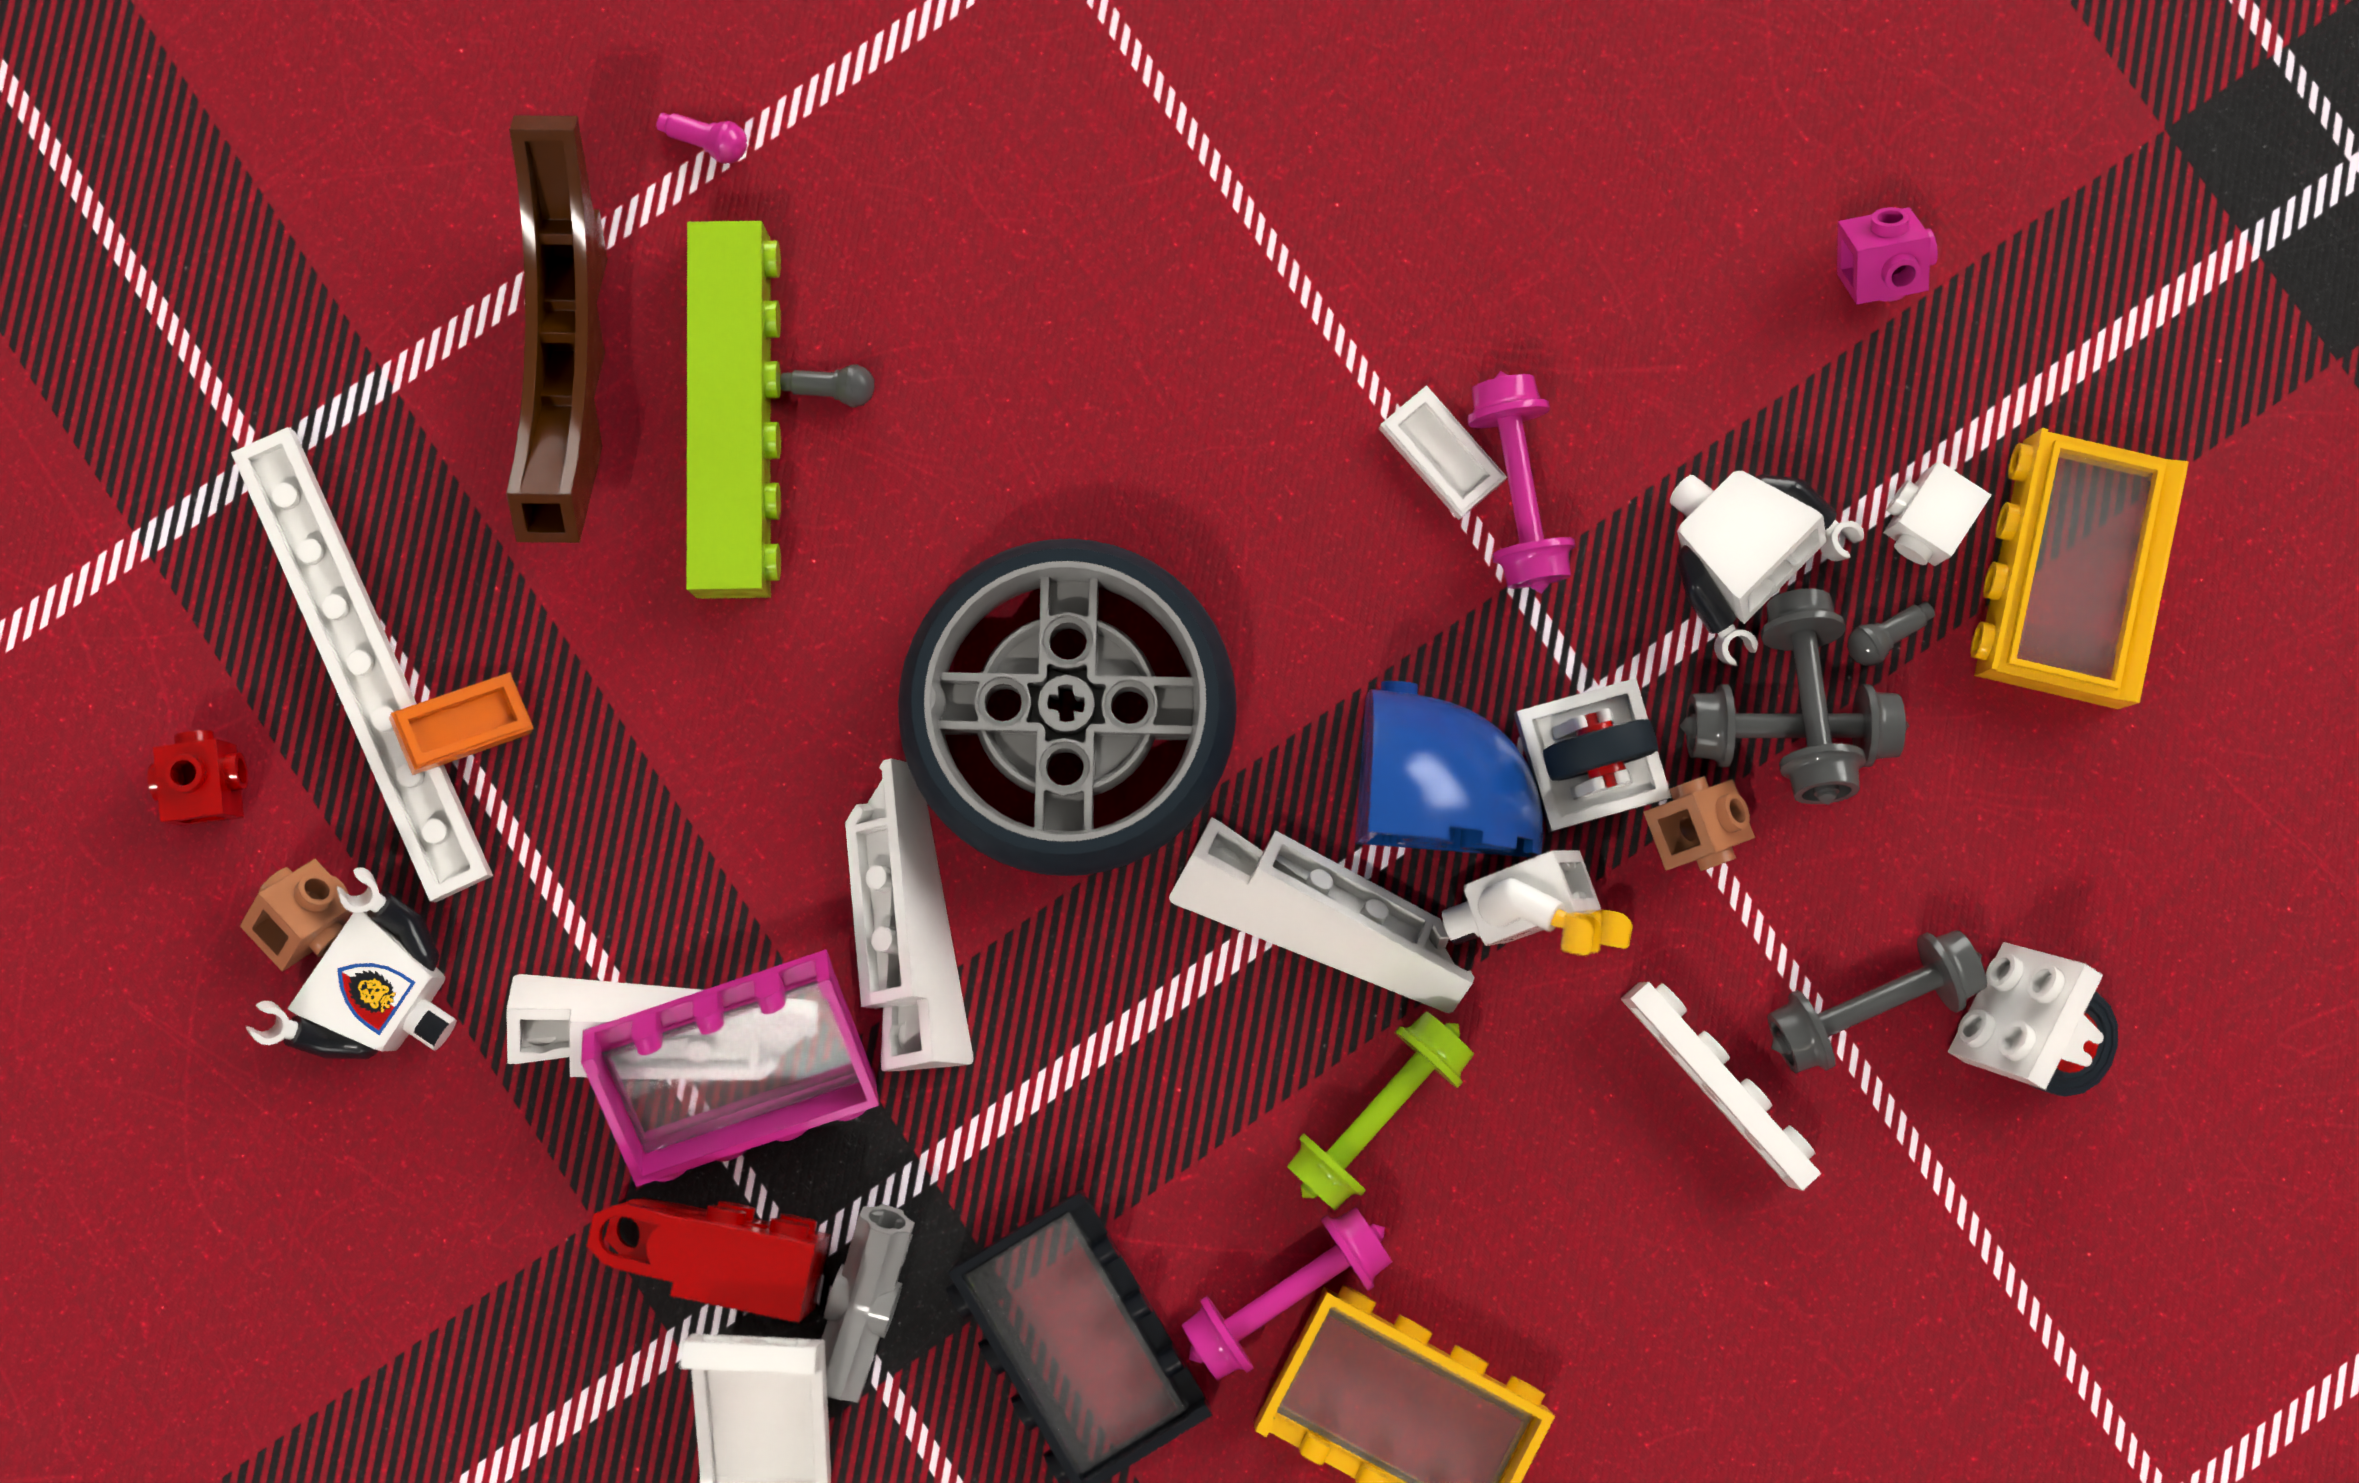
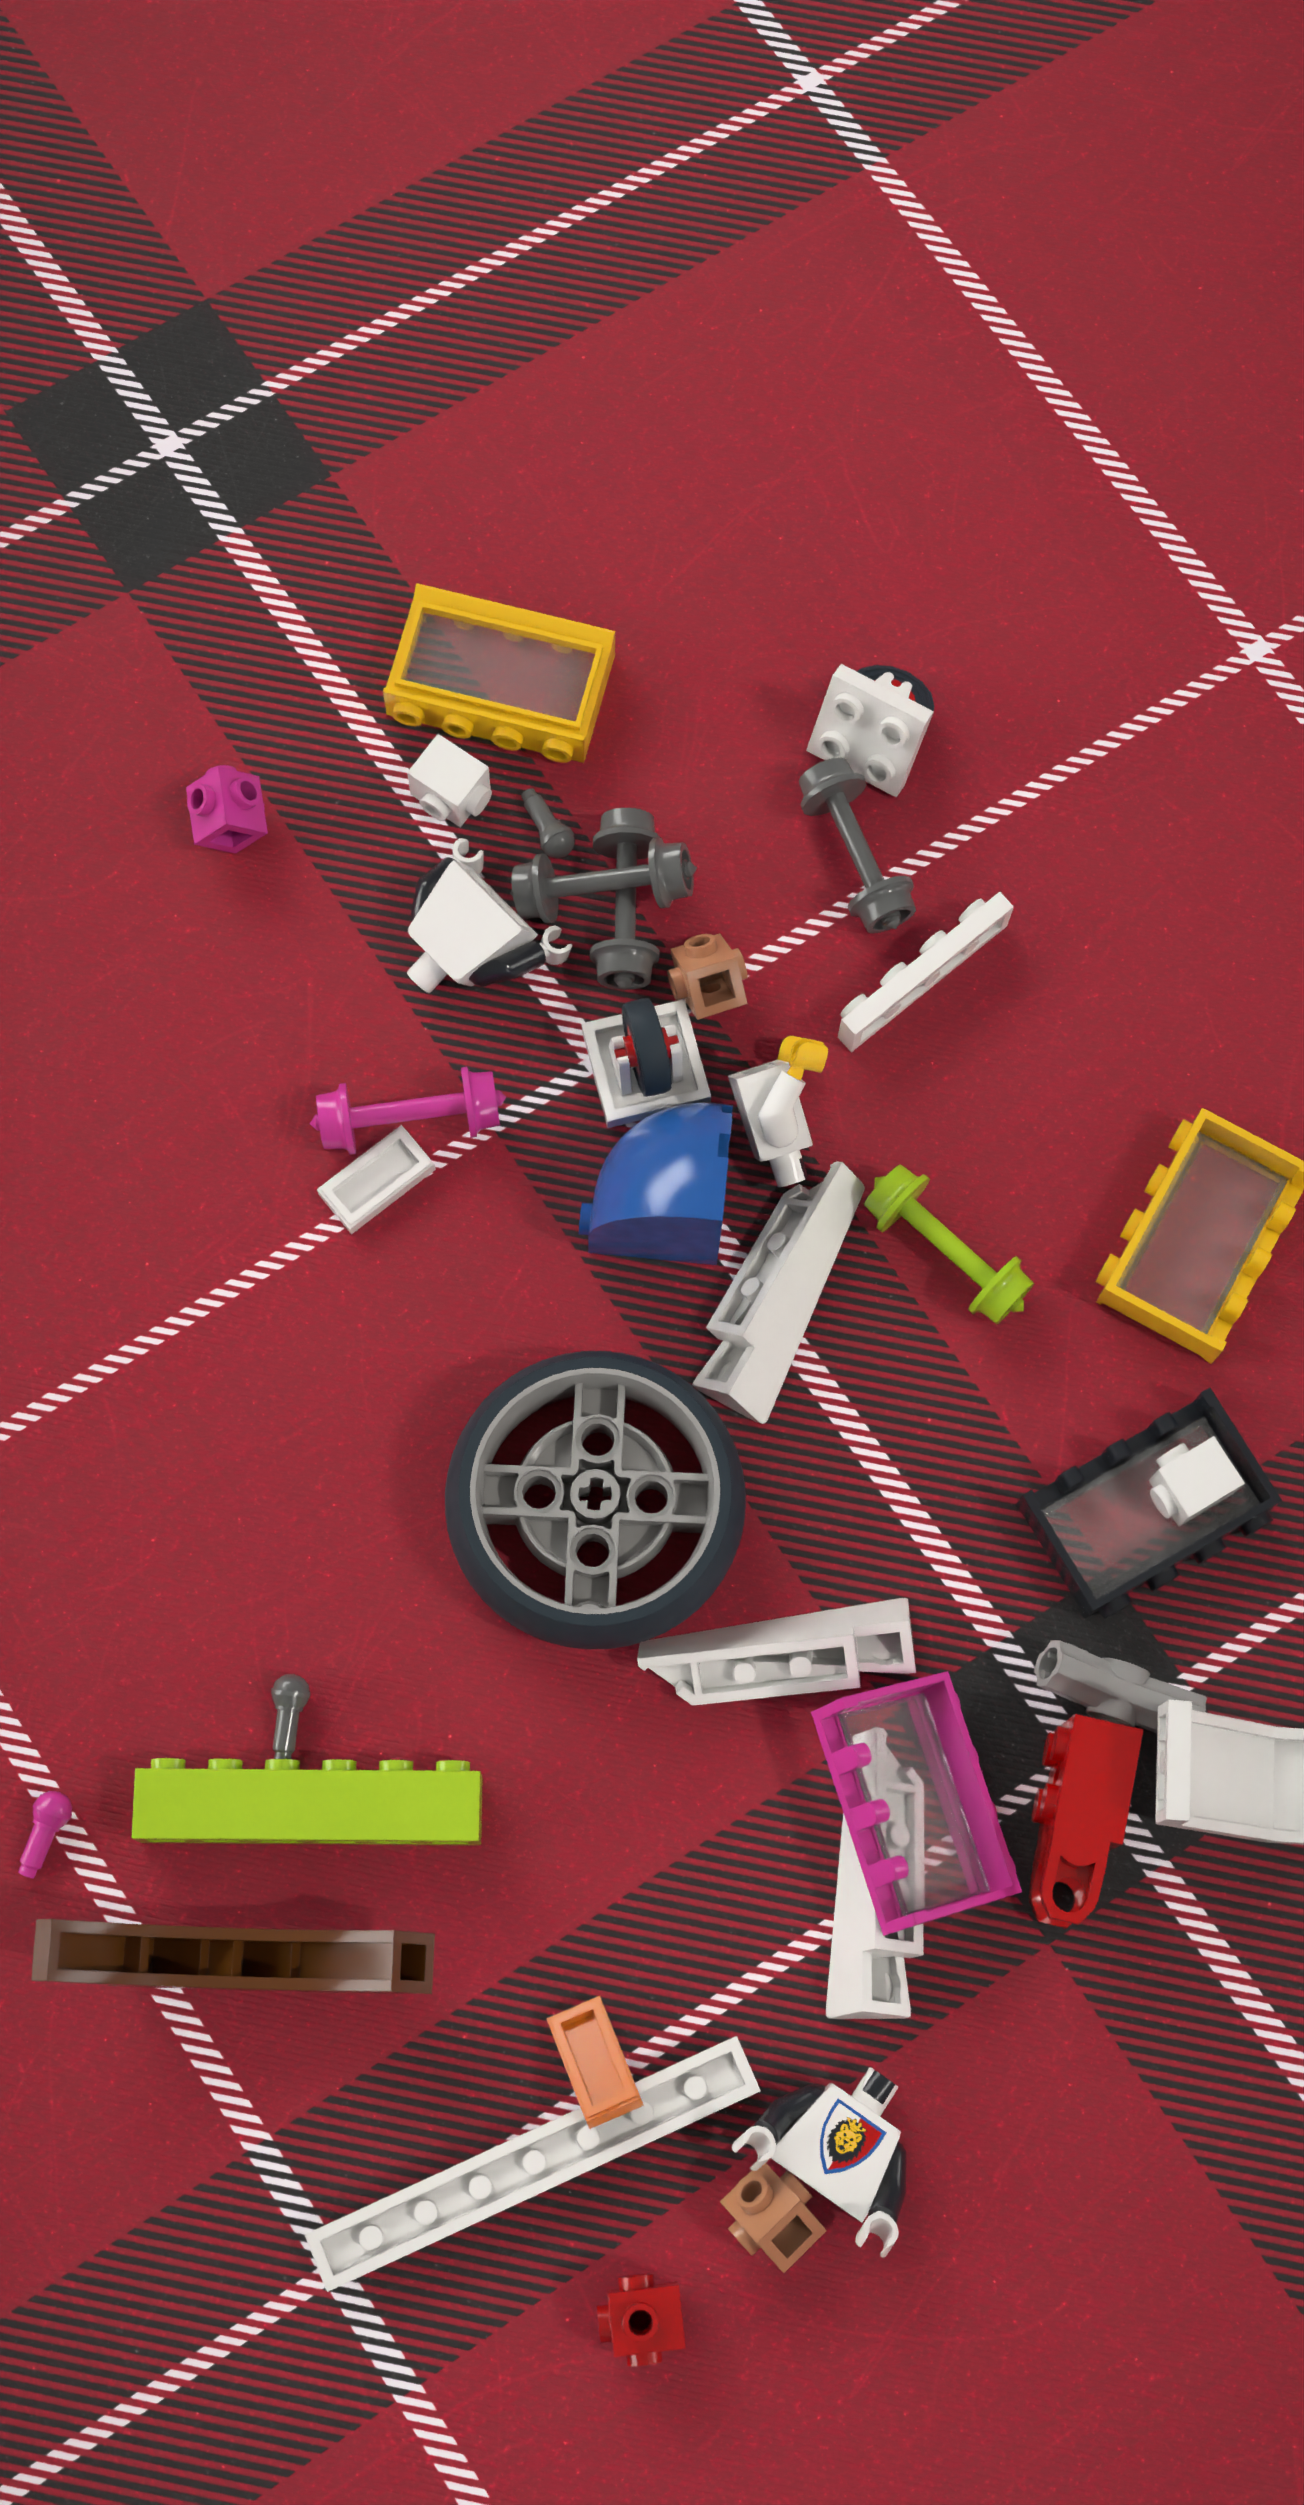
camera: 90 degrees left, 10 degrees down
(1101, 1392) = (1193, 1480): none -> white brick
(1217, 1340) = (1064, 1268): dark pink piece -> none

